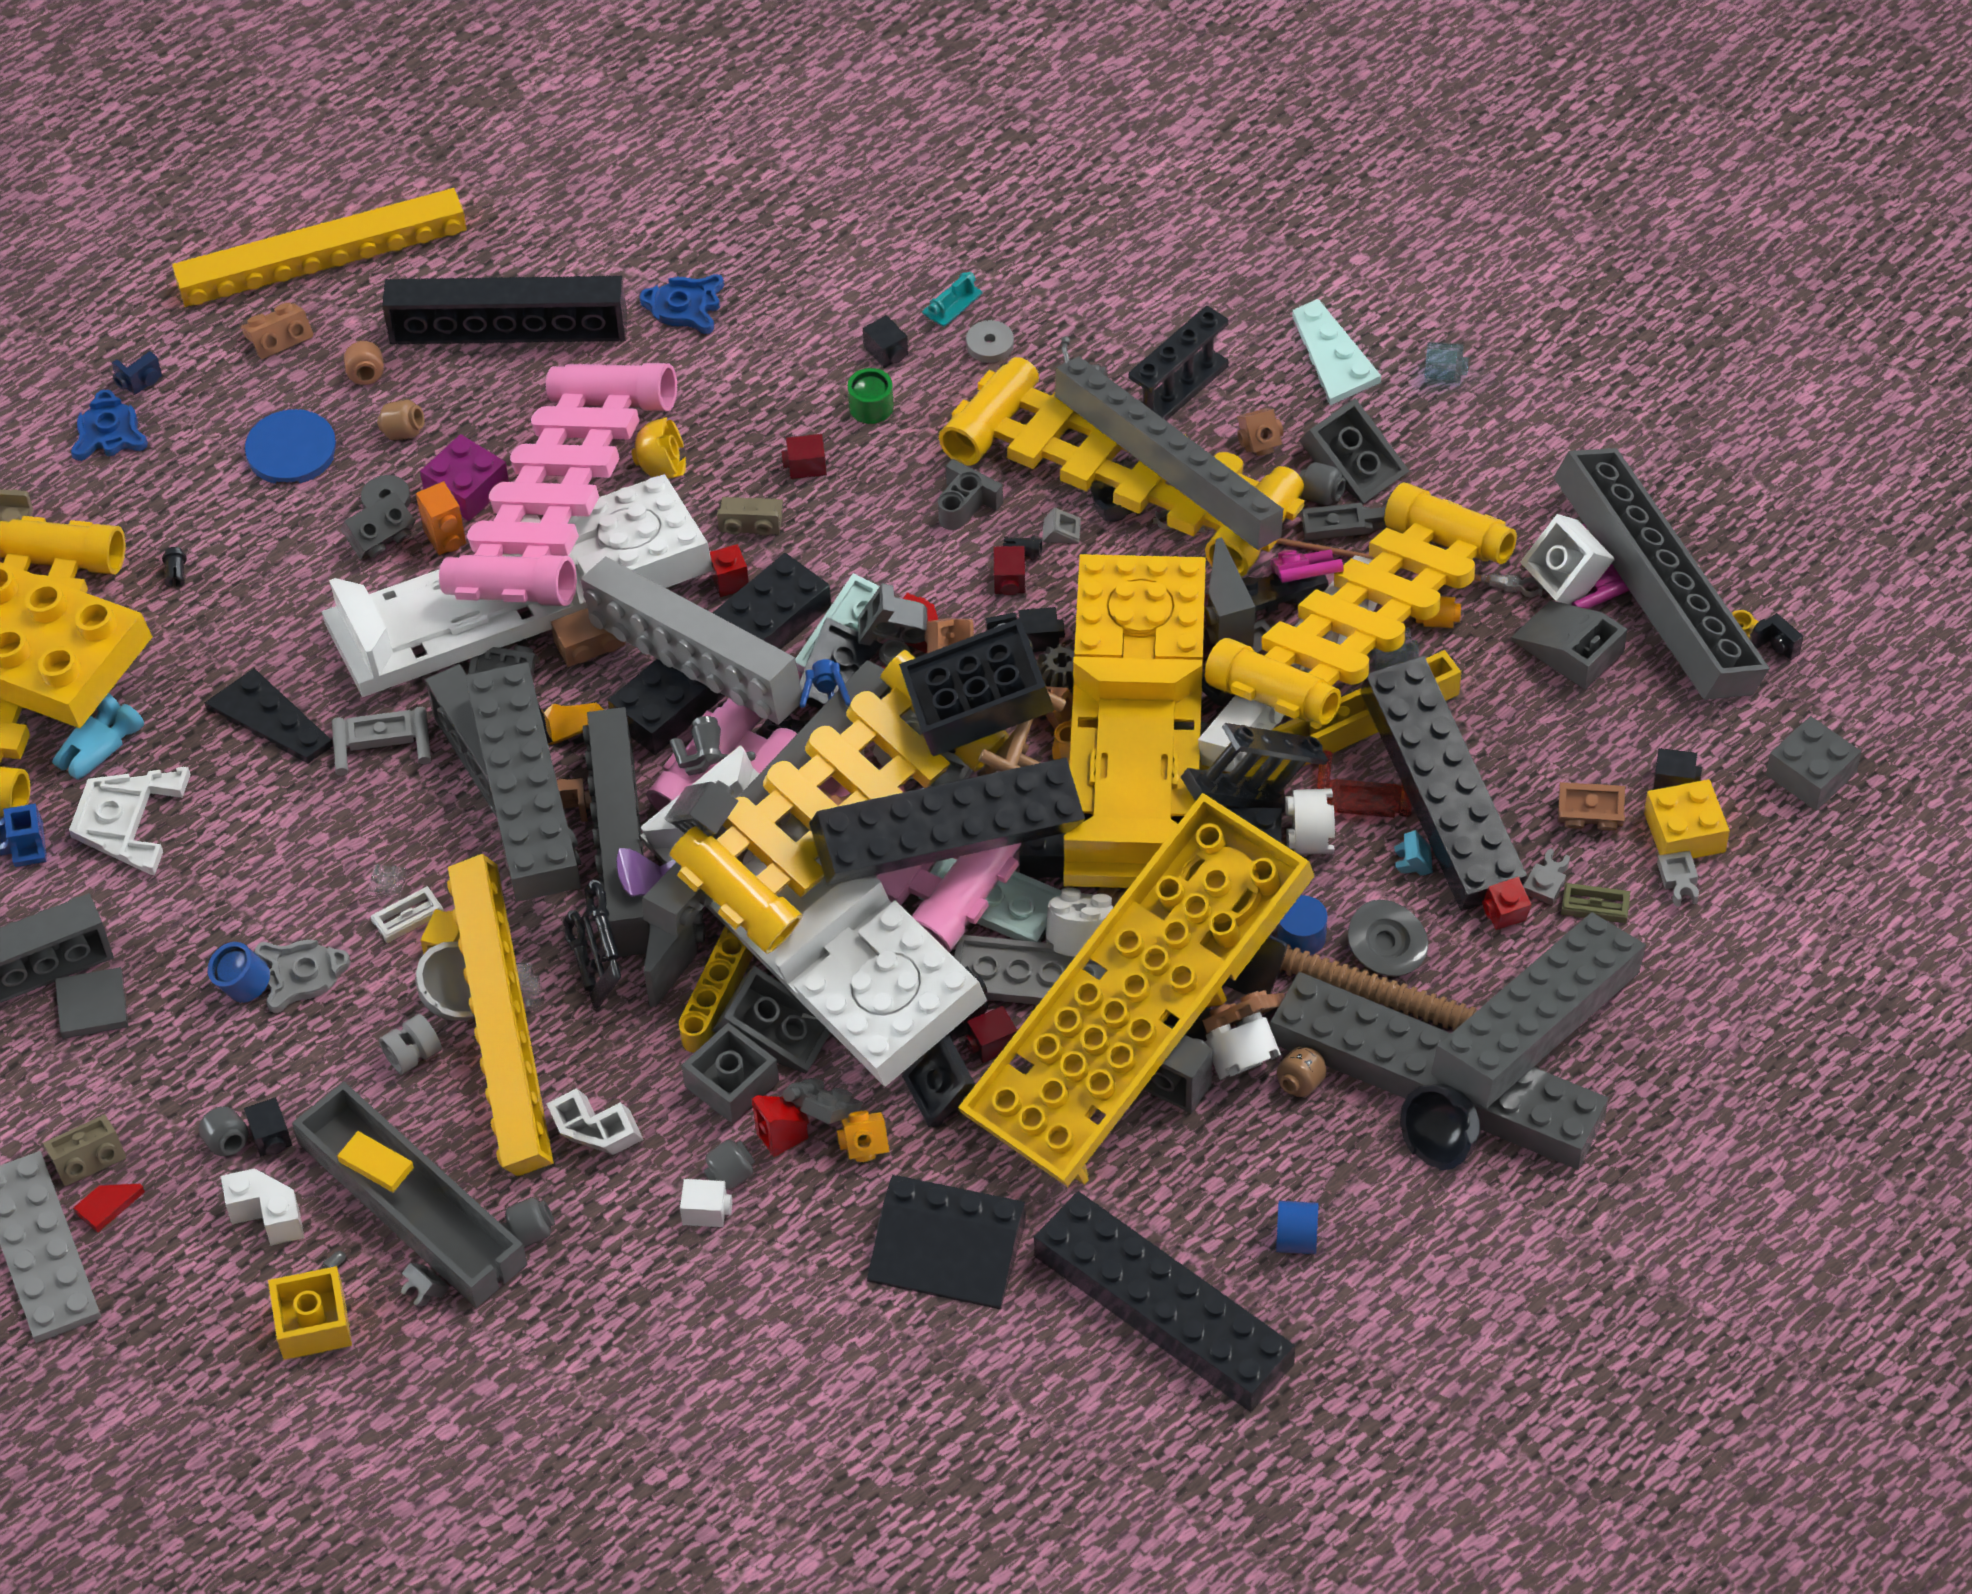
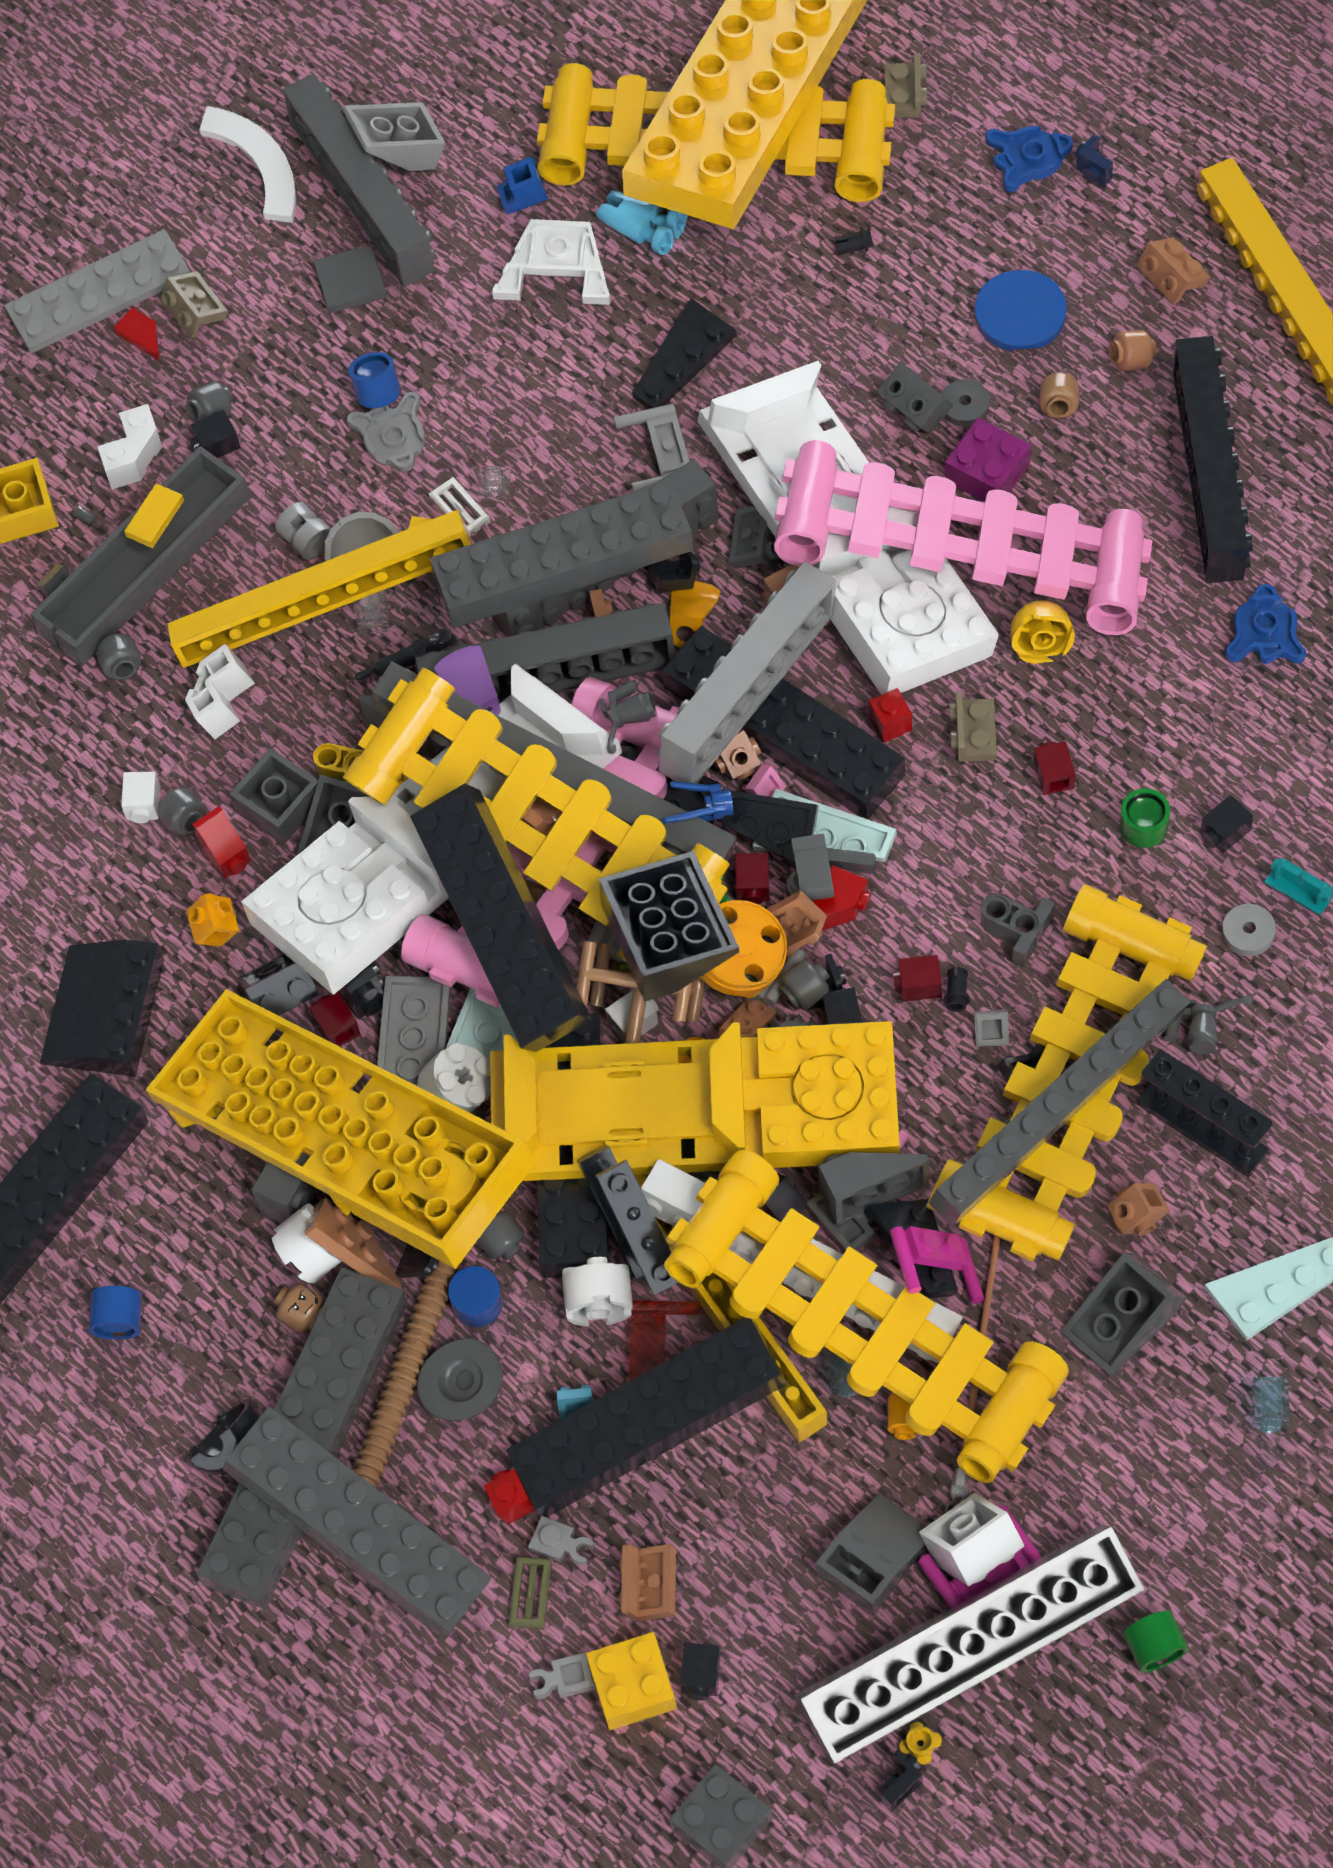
camera: 90 degrees right, 10 degrees up
(441, 518) = (921, 448): orange brick -> none
(702, 806) = (485, 691): dark grey brick -> none
(820, 1103) = (233, 878): dark grey plate -> none
(1322, 483) = (1072, 1280): dark grey head -> none
(1341, 521) = (1024, 1302): dark grey hinge -> none
(1657, 453) = (1156, 1639): none -> green piece

